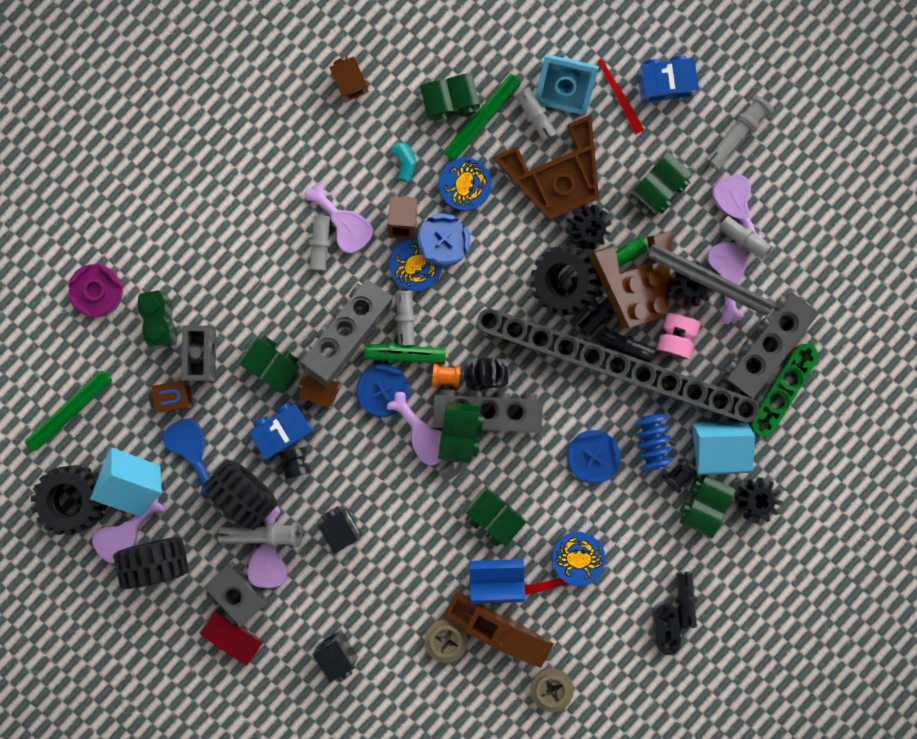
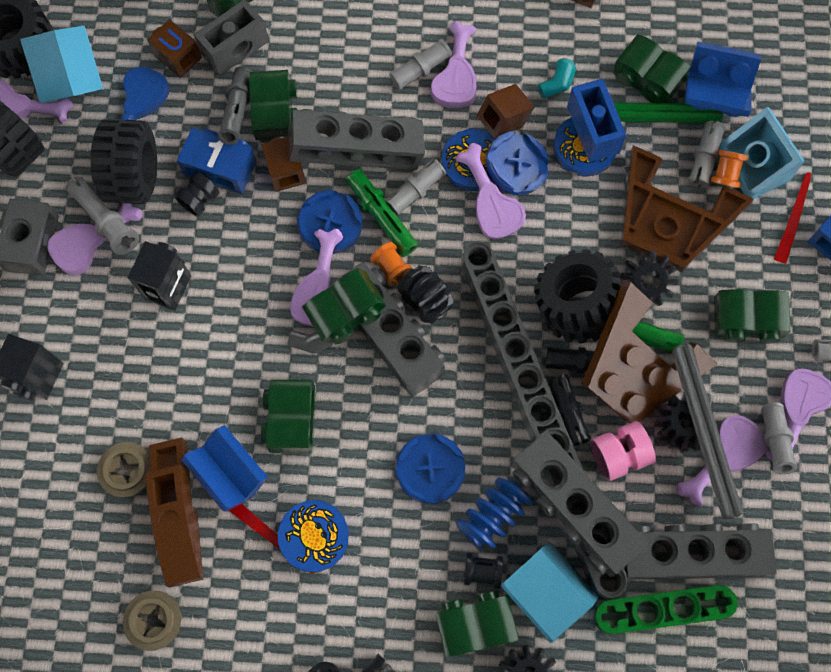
camera: 55 degrees right, 15 degrees down
(246, 382) = (237, 98): none -> dark grey pin
(461, 169) = (596, 120): none -> blue brick
(465, 282) = (495, 213): none -> lavender piece
(498, 62) = (721, 79): none -> blue bracket
(559, 111) = (729, 168): none -> orange bush
(736, 389) = (624, 540): none -> dark grey brick

